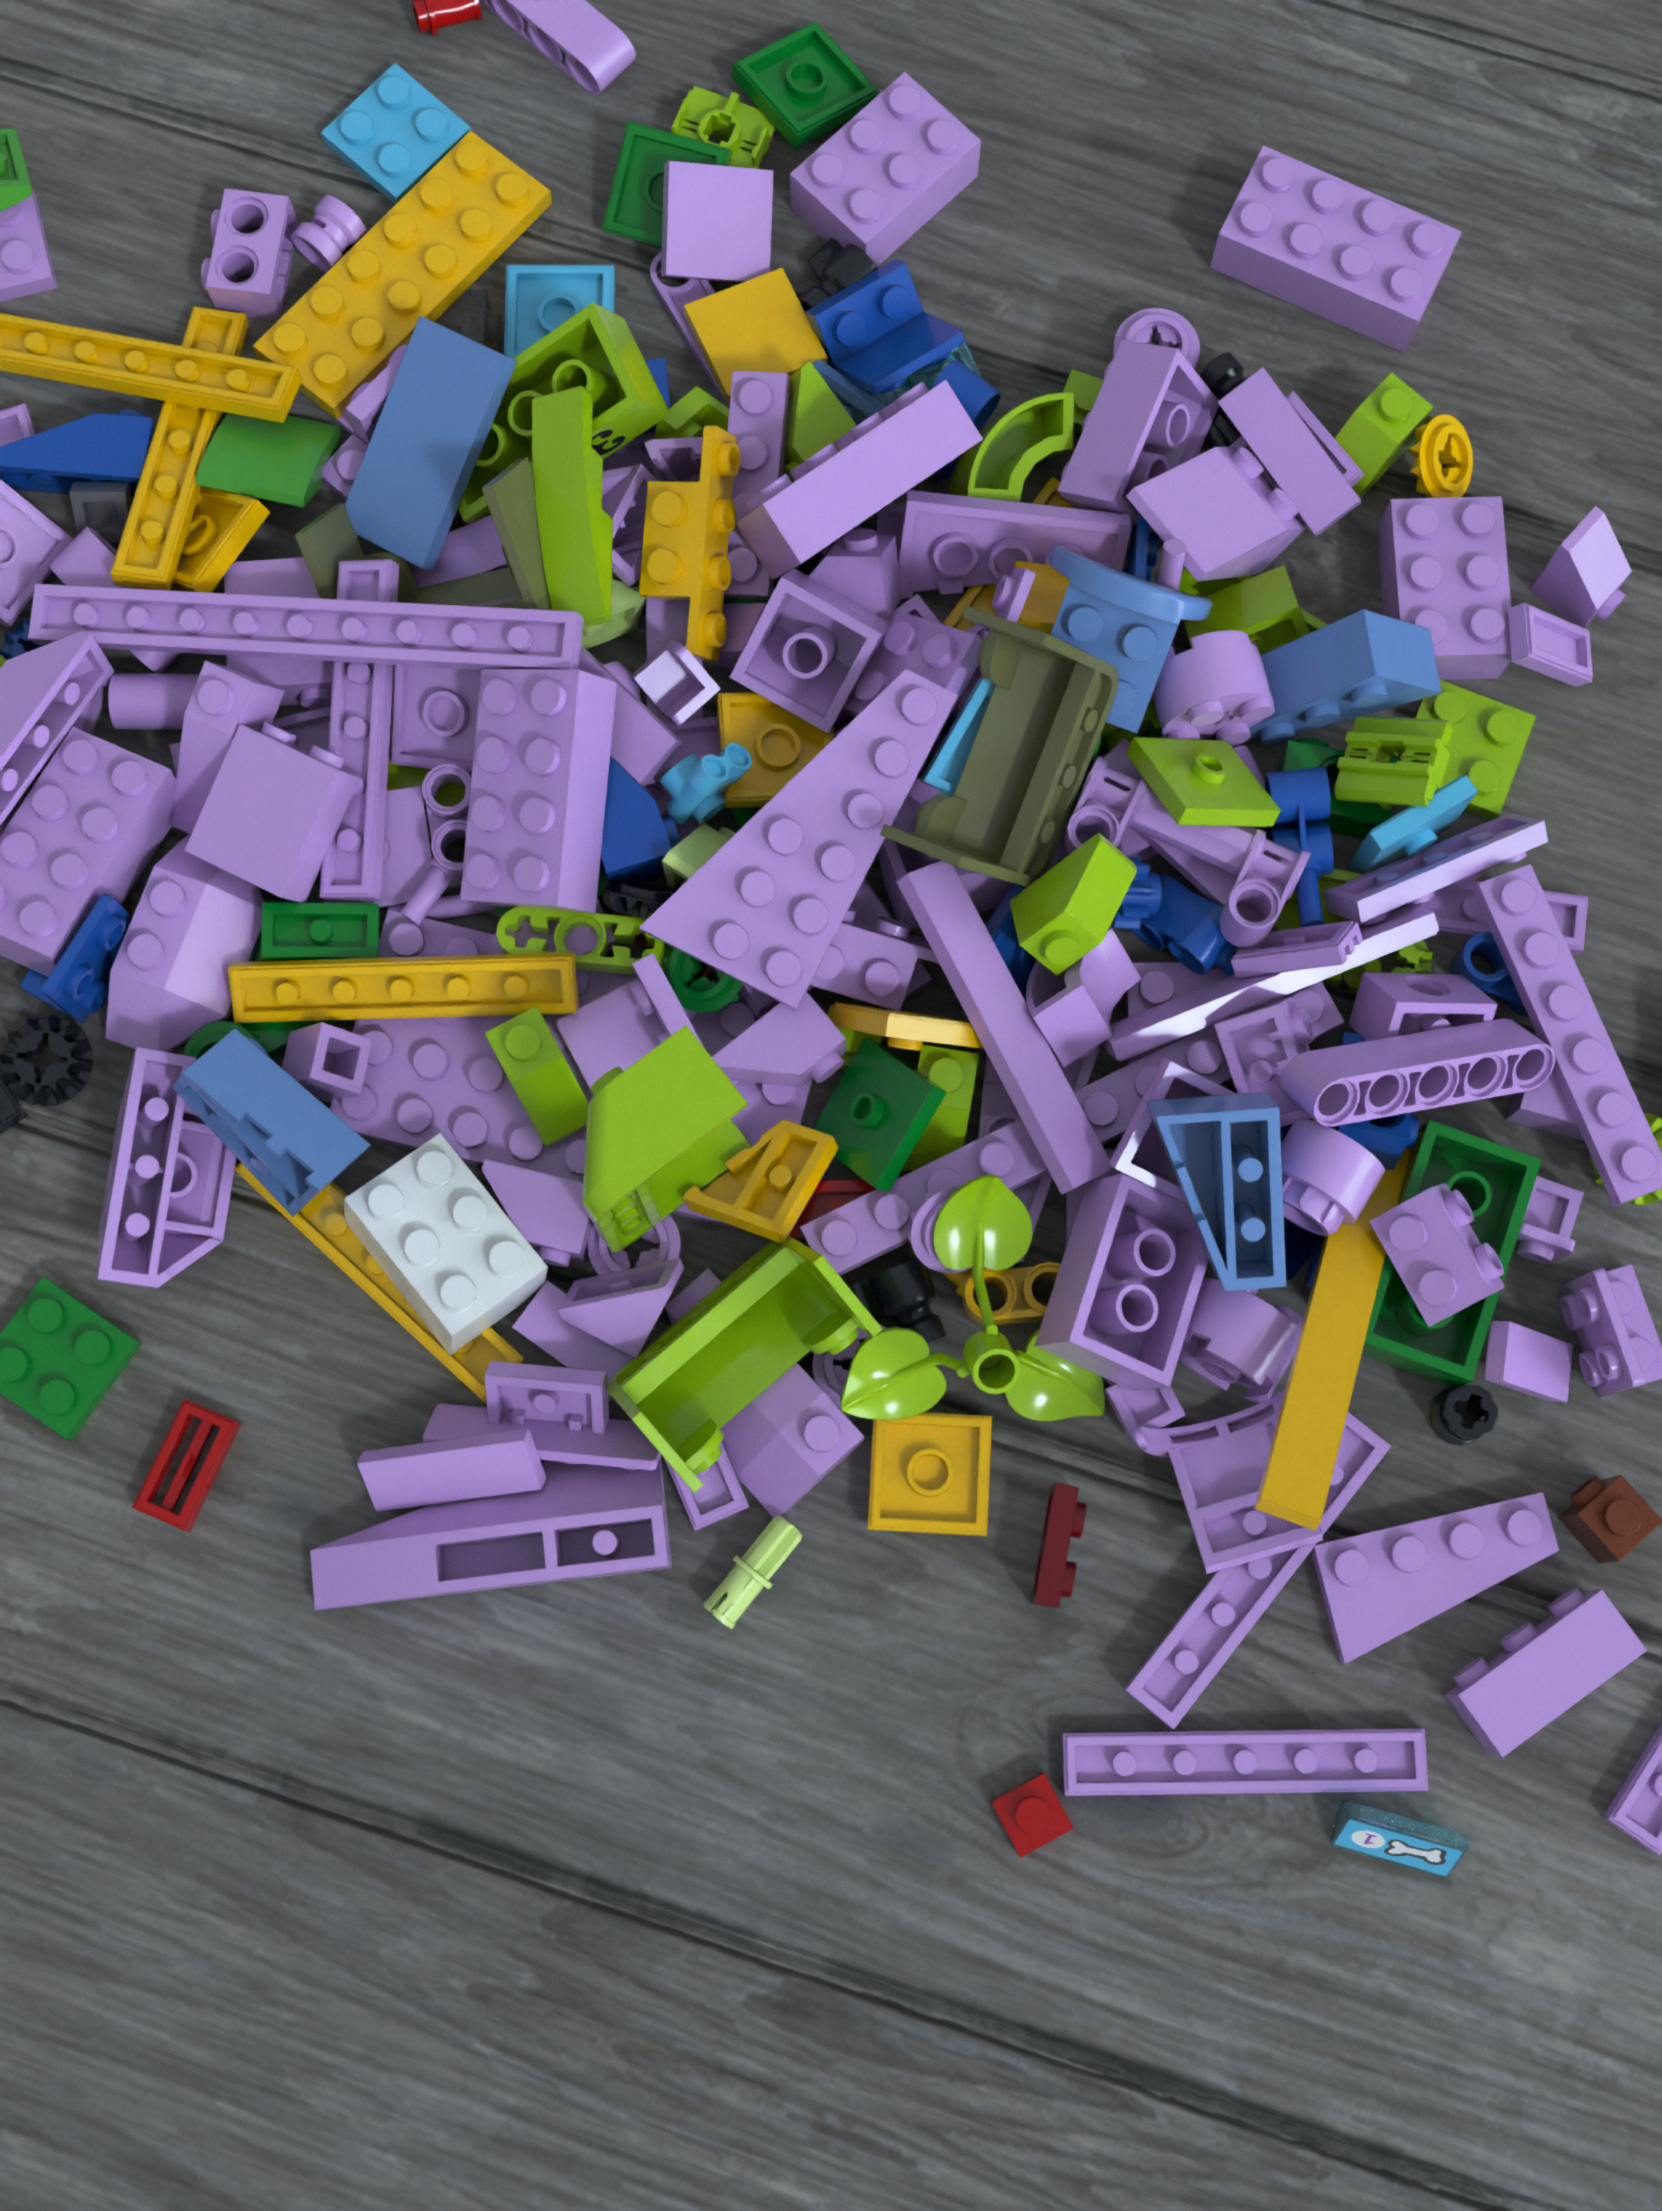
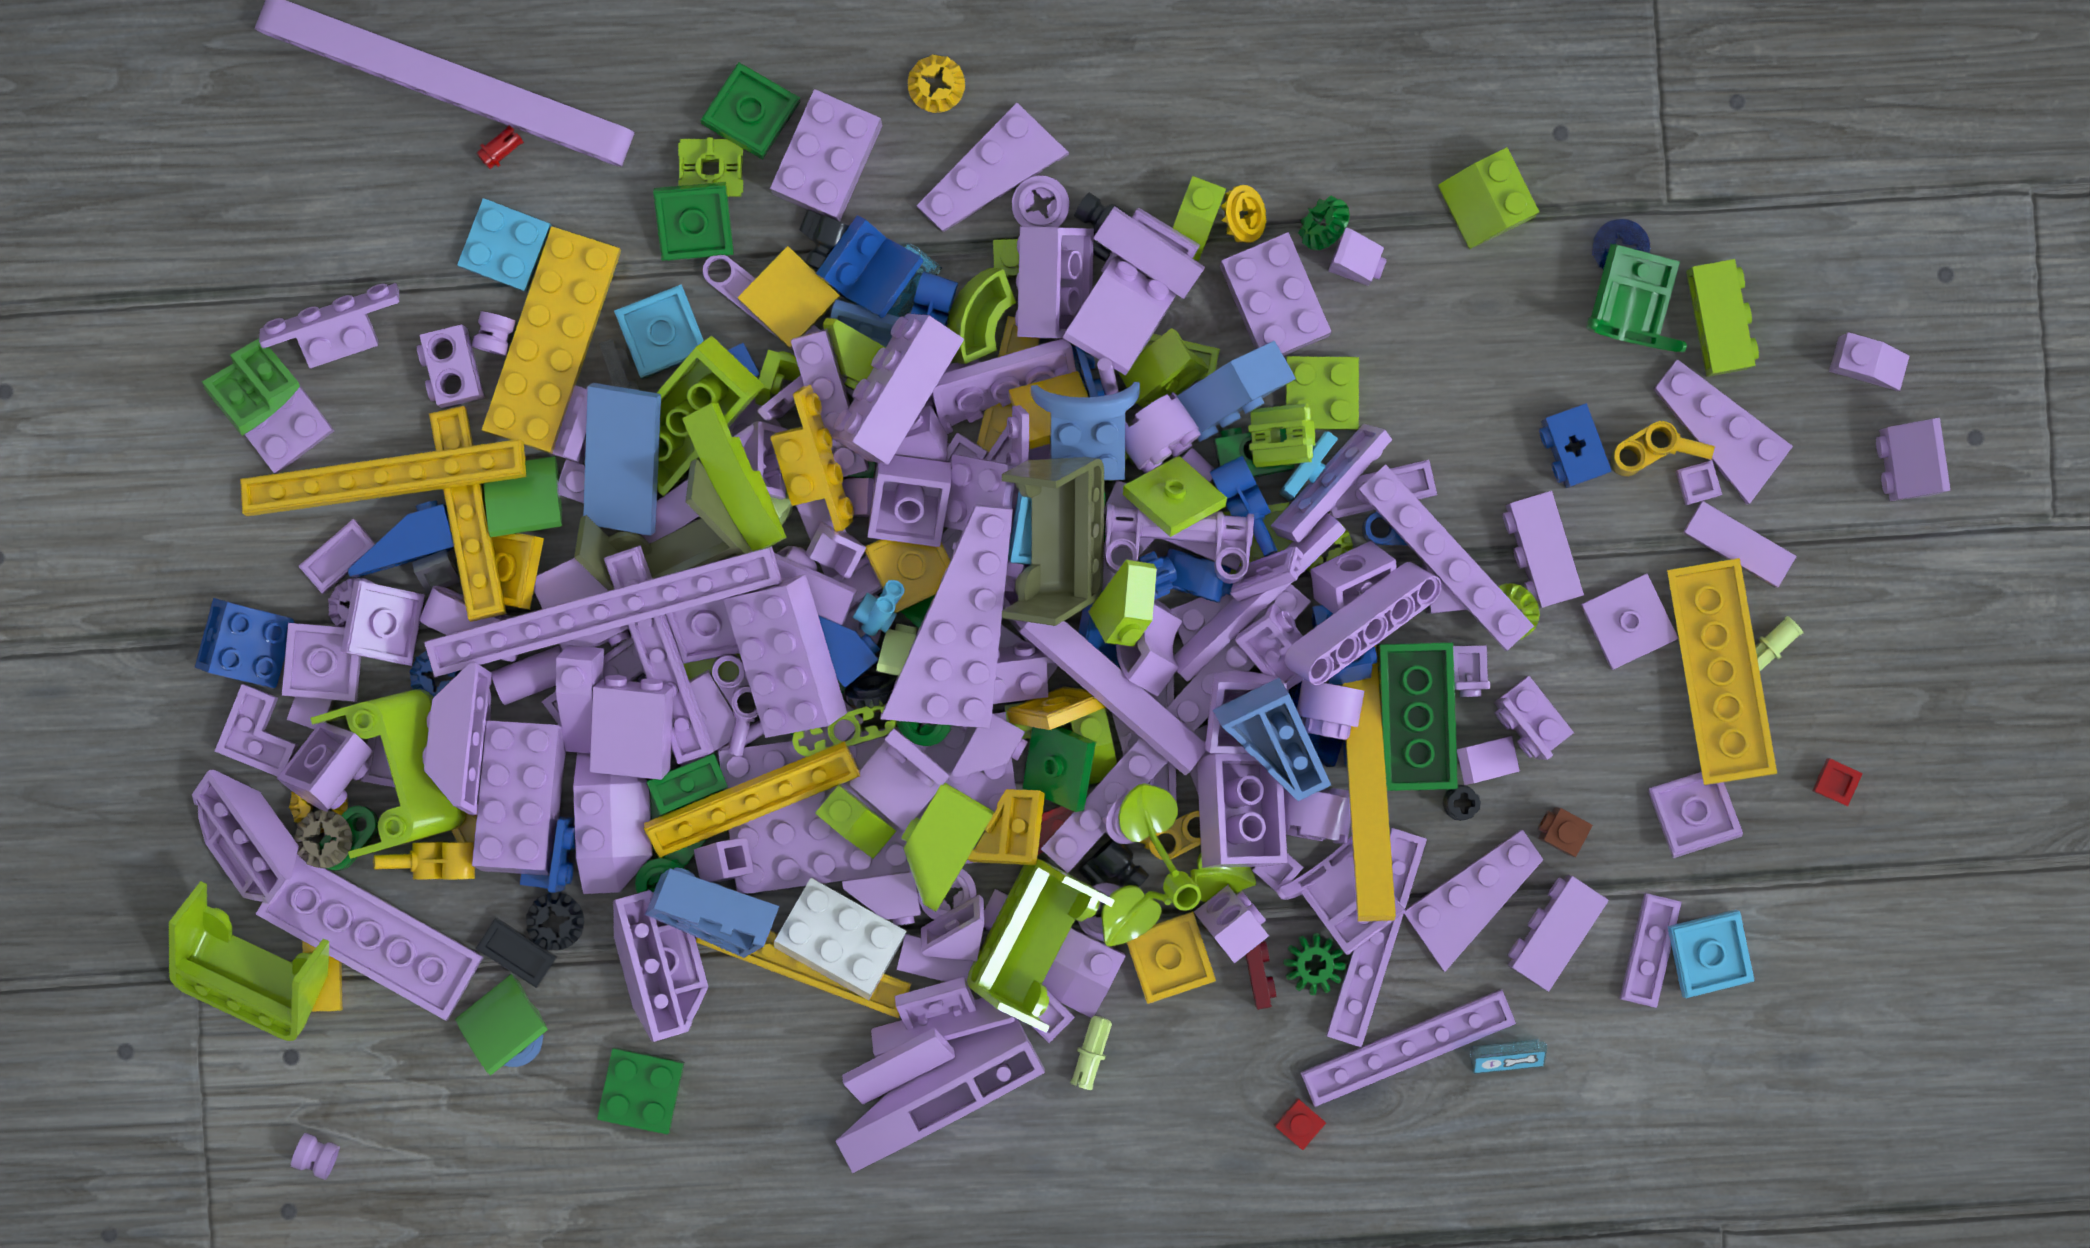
camera: 20 degrees left, 10 degrees up
(116, 157) = (333, 329): none -> lavender bracket
(206, 1476) = (743, 1089): red tile -> none
(716, 222) = (736, 235): lavender tile -> none
(1048, 1452) = (1233, 922): none -> lavender brick
(1074, 166) = (942, 99): none -> yellow gear
(1105, 280) = (995, 165): none -> lavender wing
(1153, 1589) = (1306, 954): none -> green gear
(1334, 249) = (1127, 96): lavender brick -> none
(1439, 1252) = (1412, 724): lavender bracket -> none
(1550, 645) = (1351, 312): lavender tile -> none
(1552, 513) = (1337, 217): none -> green gear

